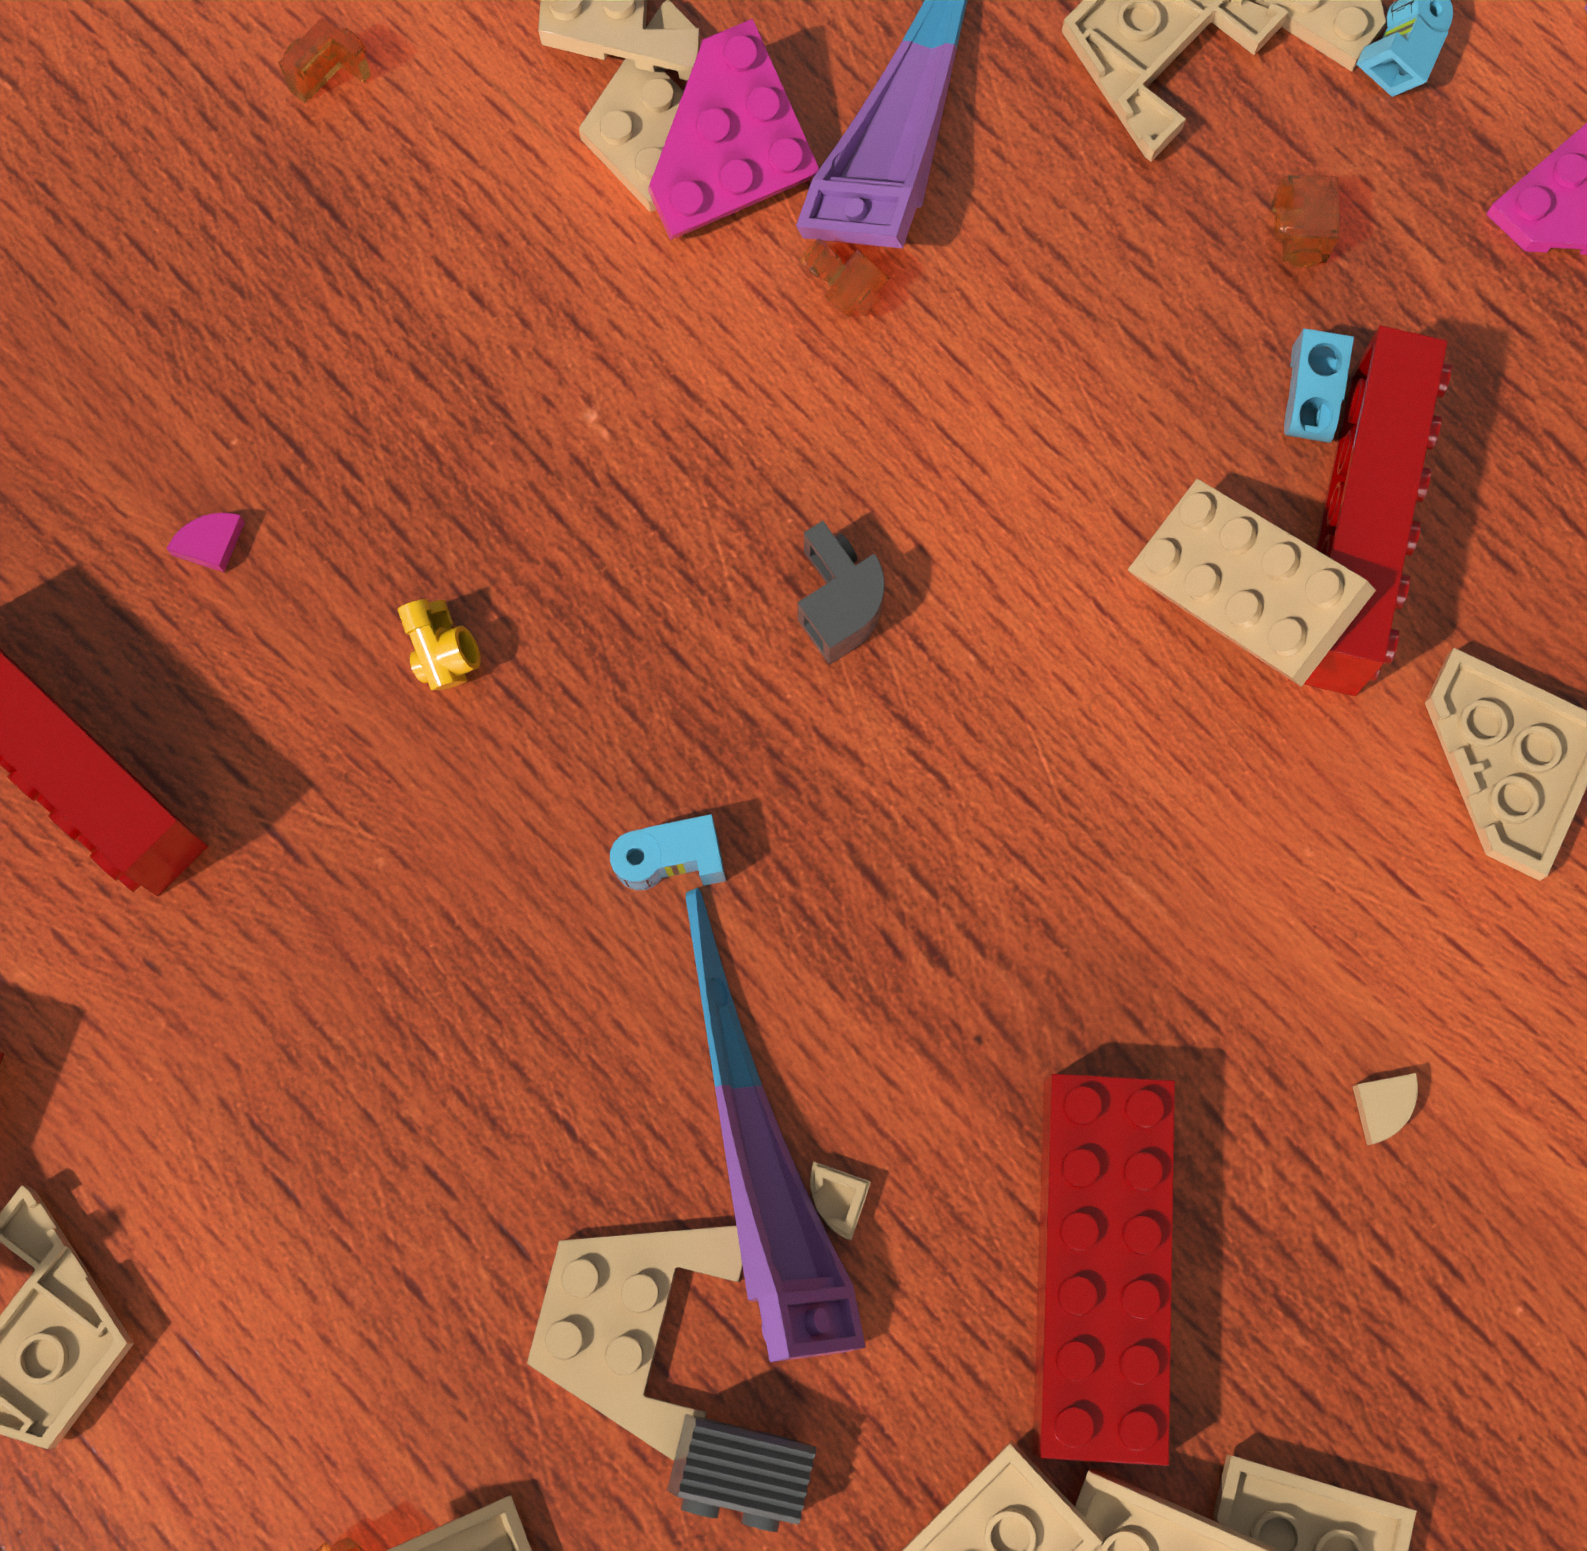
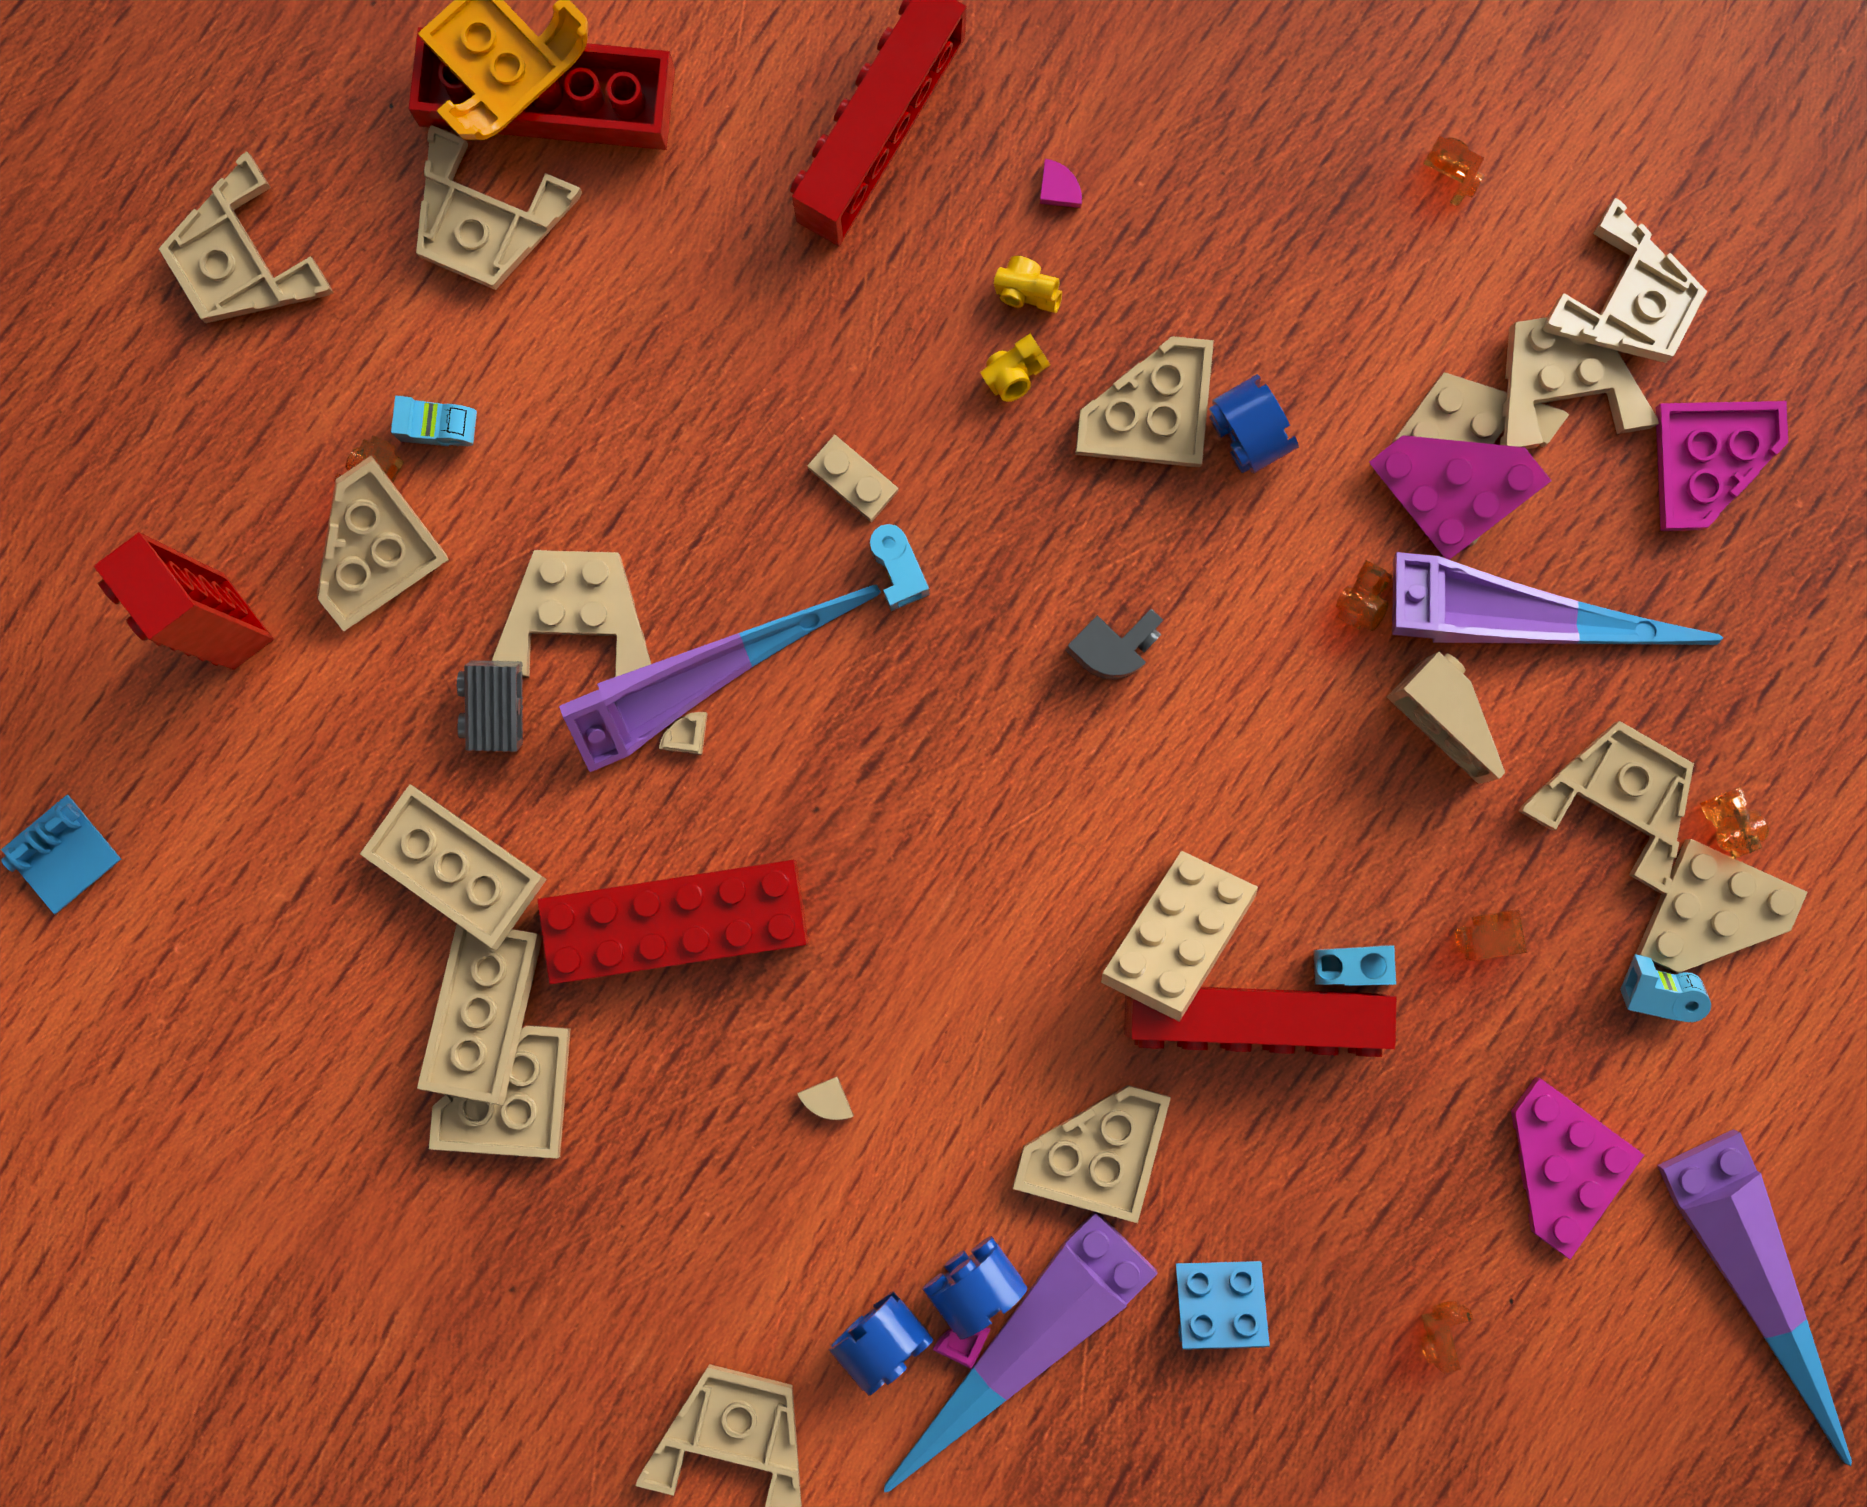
camera: 75 degrees right, 10 degrees up
(304, 1475) = (433, 422): none -> medium azure leg
(327, 612) = (1024, 284): none -> yellow plate
(532, 892) = (853, 478): none -> tan plate
(537, 482) = (1153, 409): none -> tan plate
(591, 358) = (1253, 424): none -> blue brick
(1019, 201) = (1448, 712): none -> tan slope

